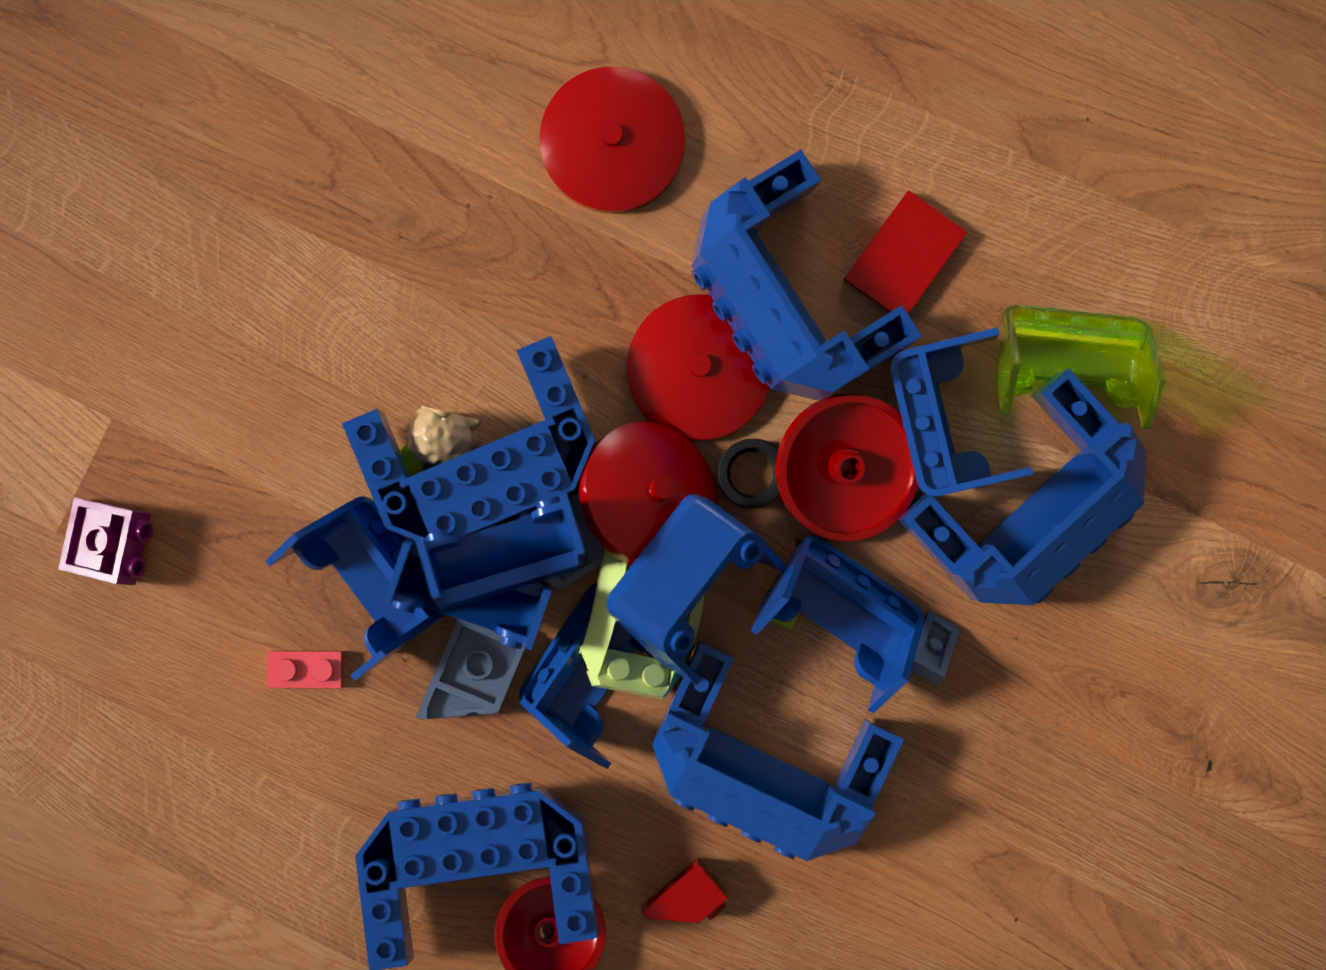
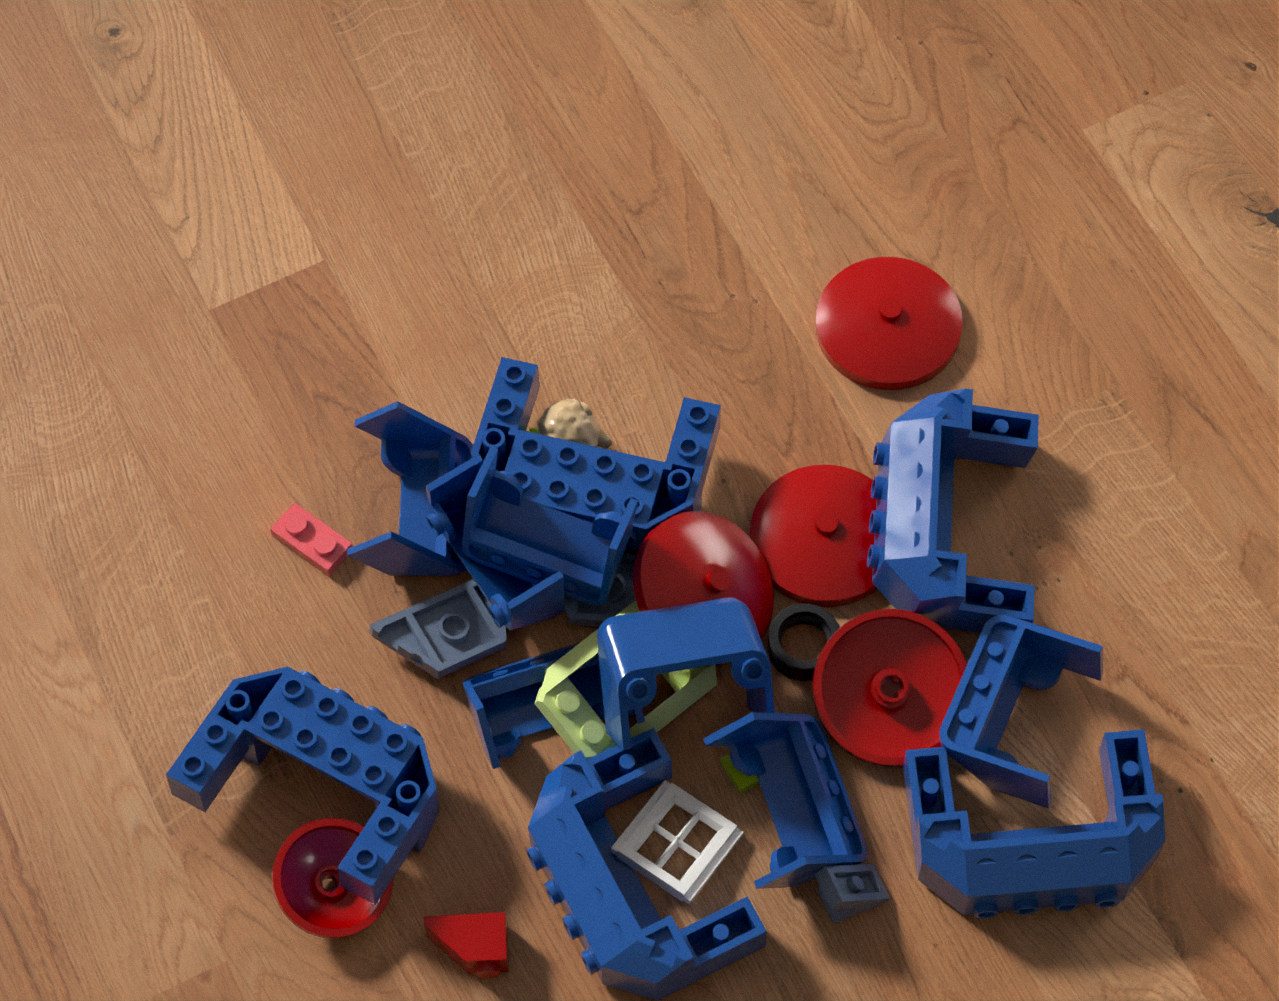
camera: 40 degrees right, 25 degrees down
(106, 542) = (243, 335): magenta plate -> none
(743, 707) = (706, 862): none -> white piece
(905, 254) = (1071, 565): red tile -> none
(1095, 346) = (1180, 744): clear neon green windscreen -> none

